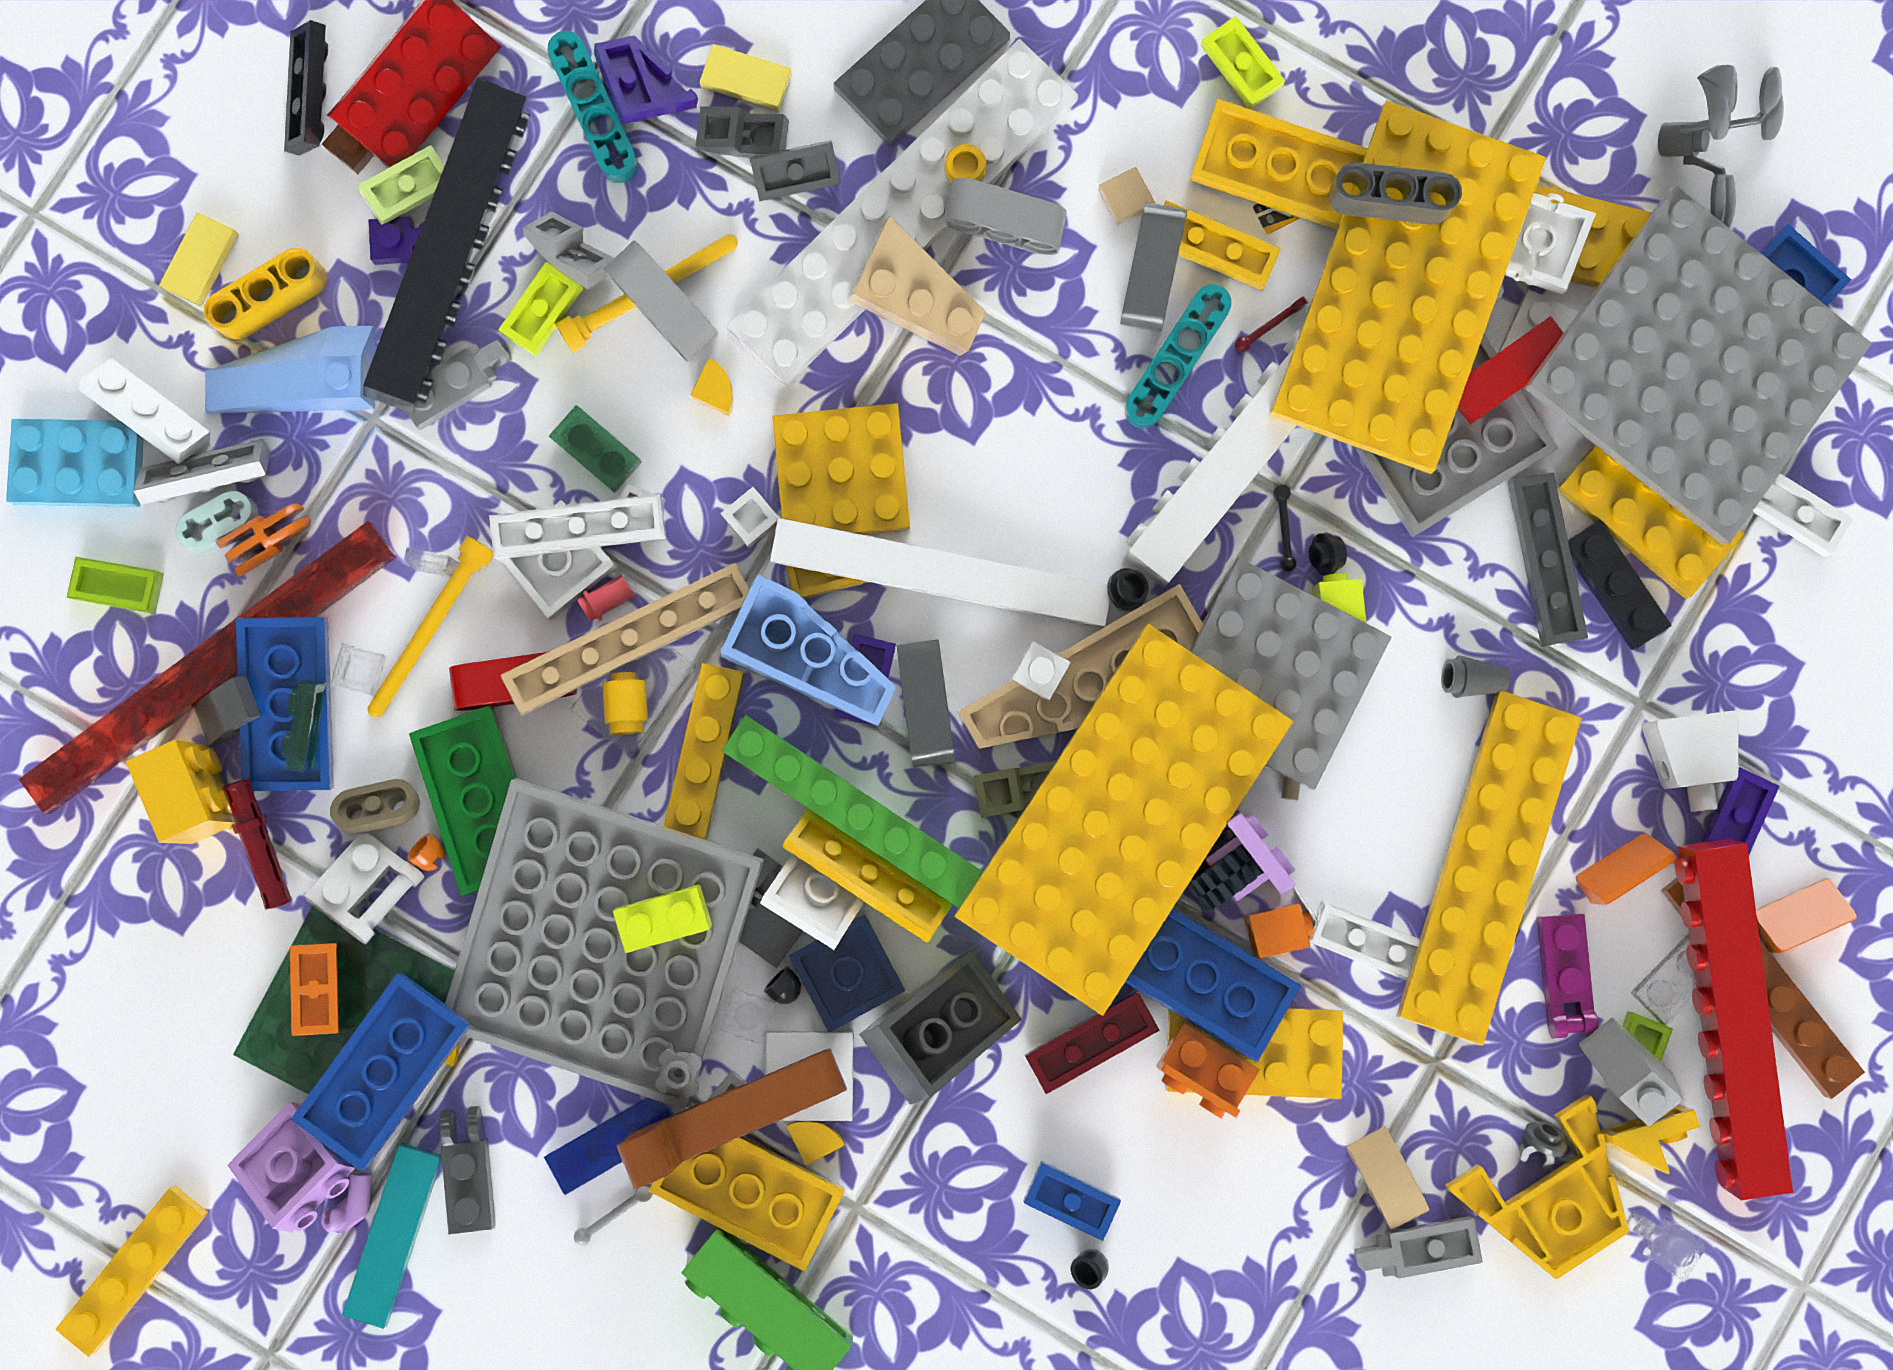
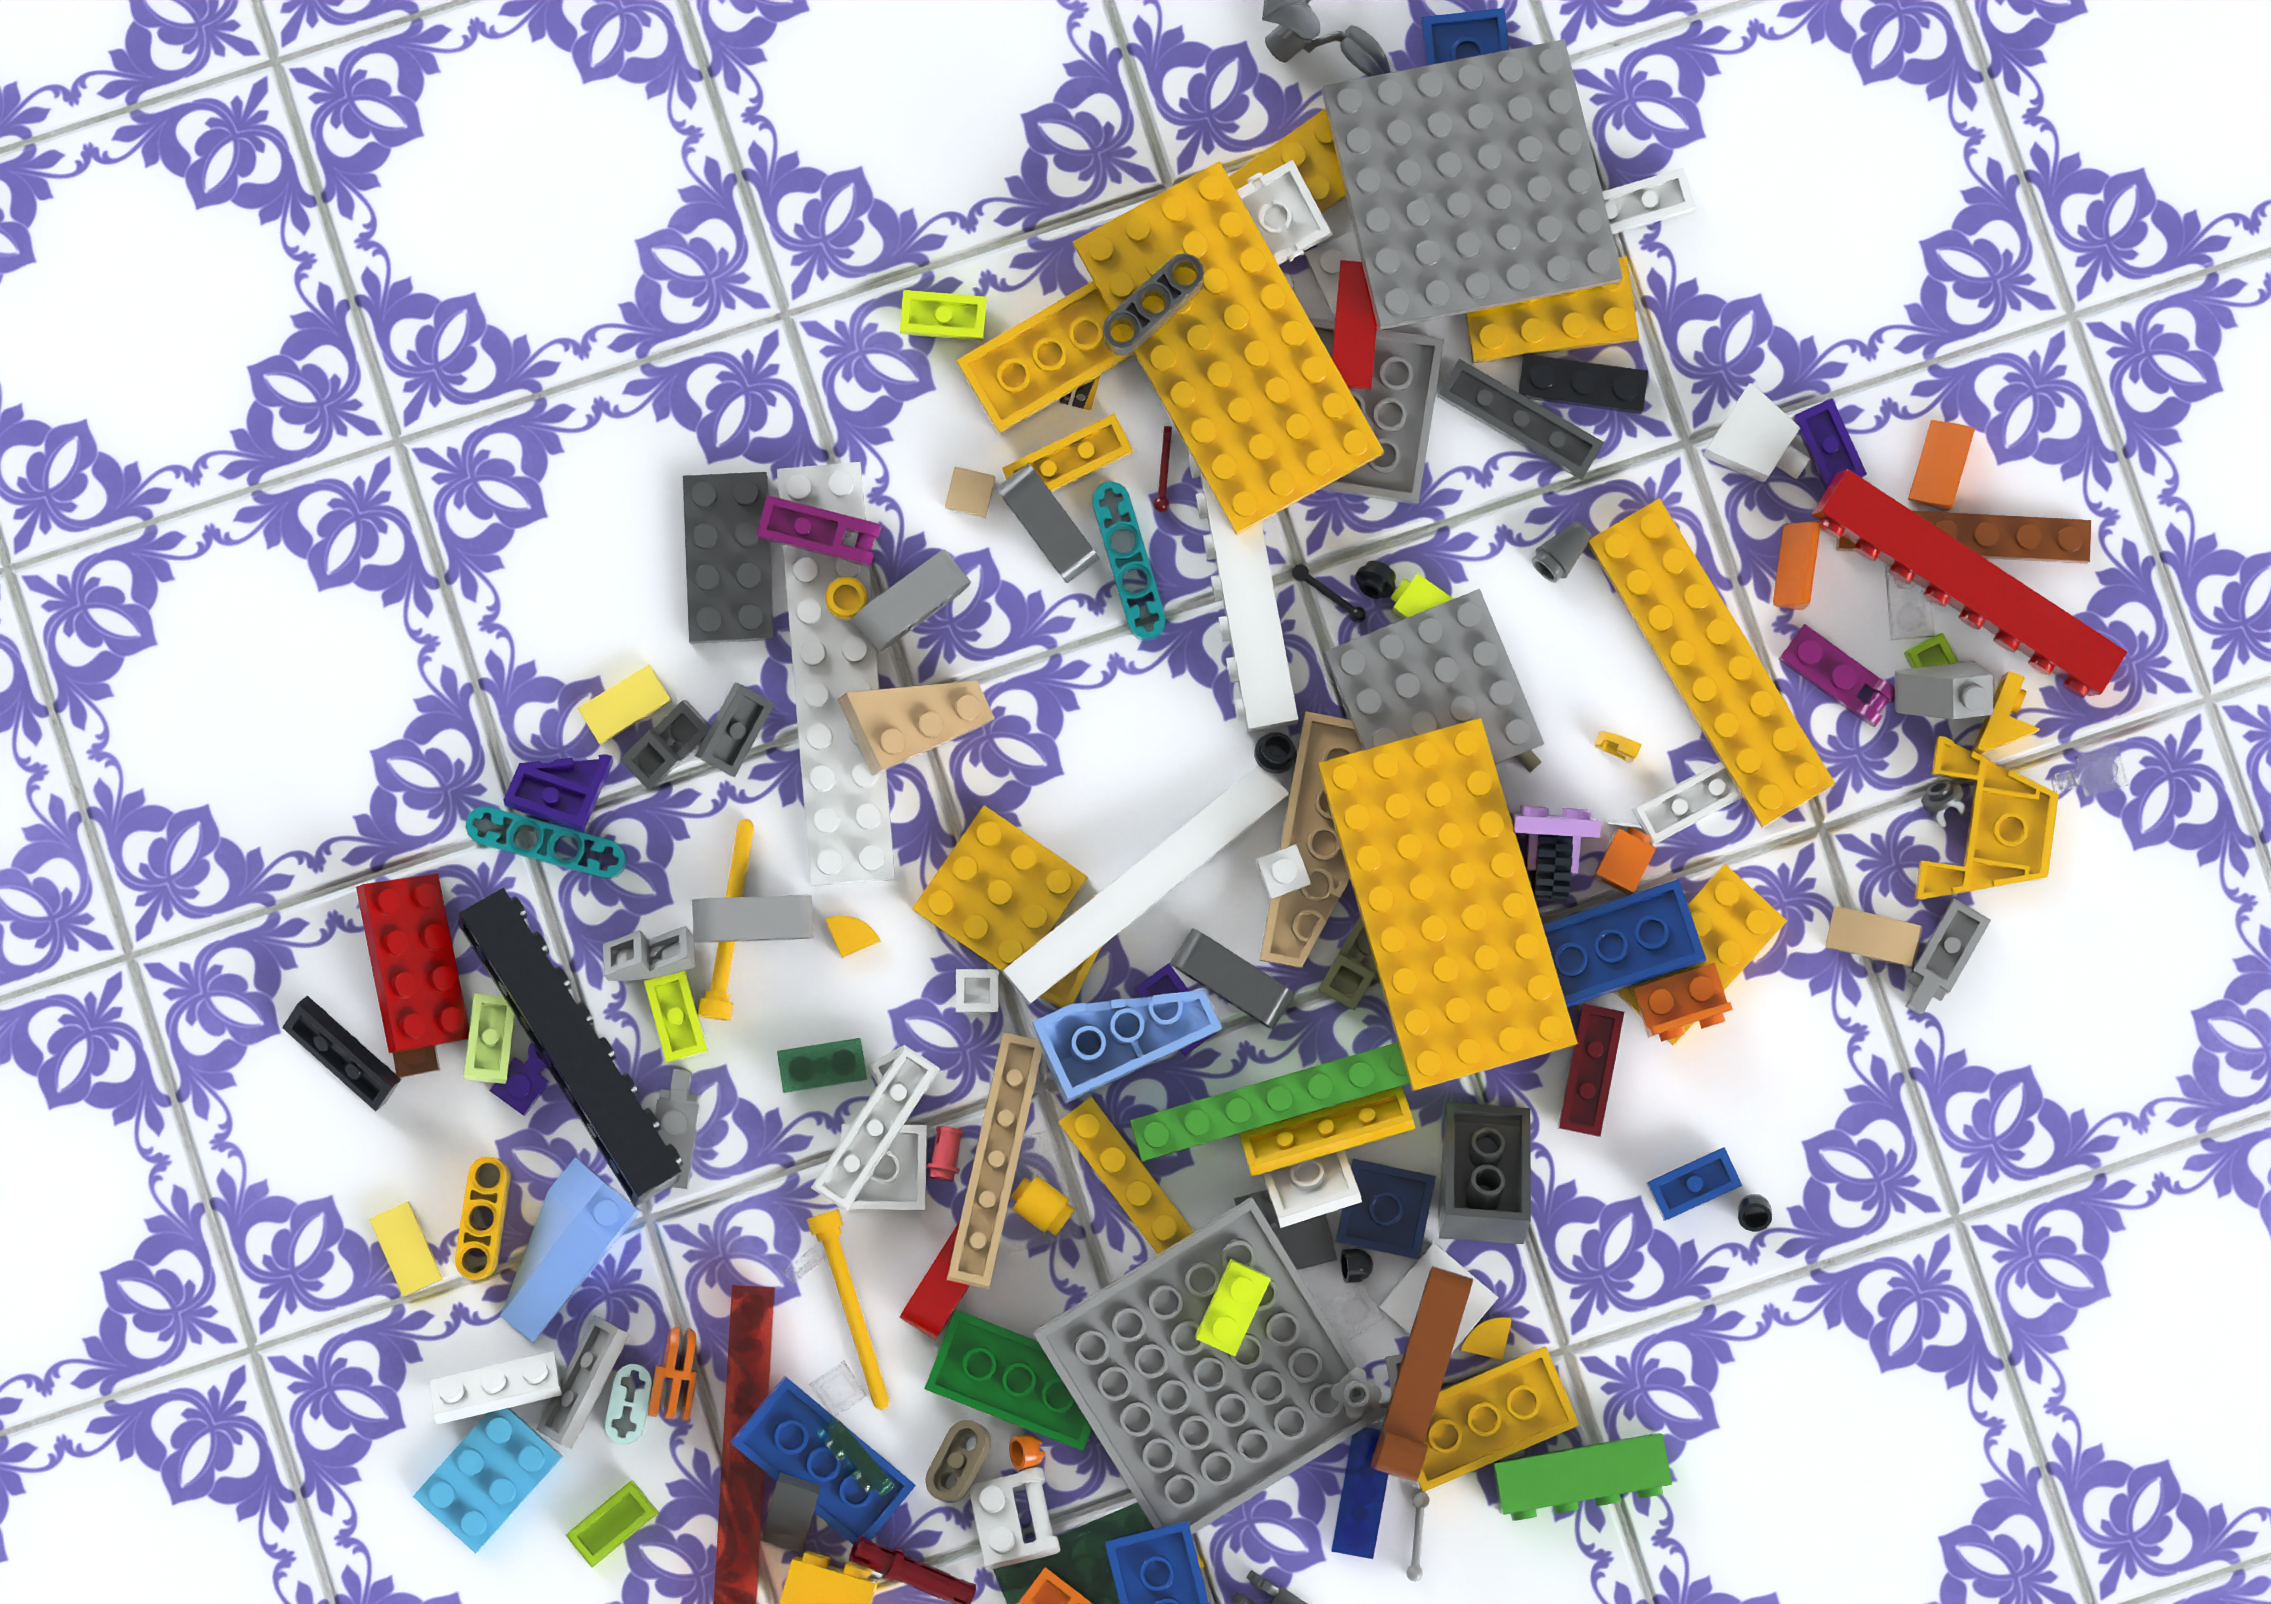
camera: 50 degrees left, 0 degrees up
(997, 100) = (817, 530): none -> magenta plate
(1362, 849) = (1617, 746): none -> yellow tile

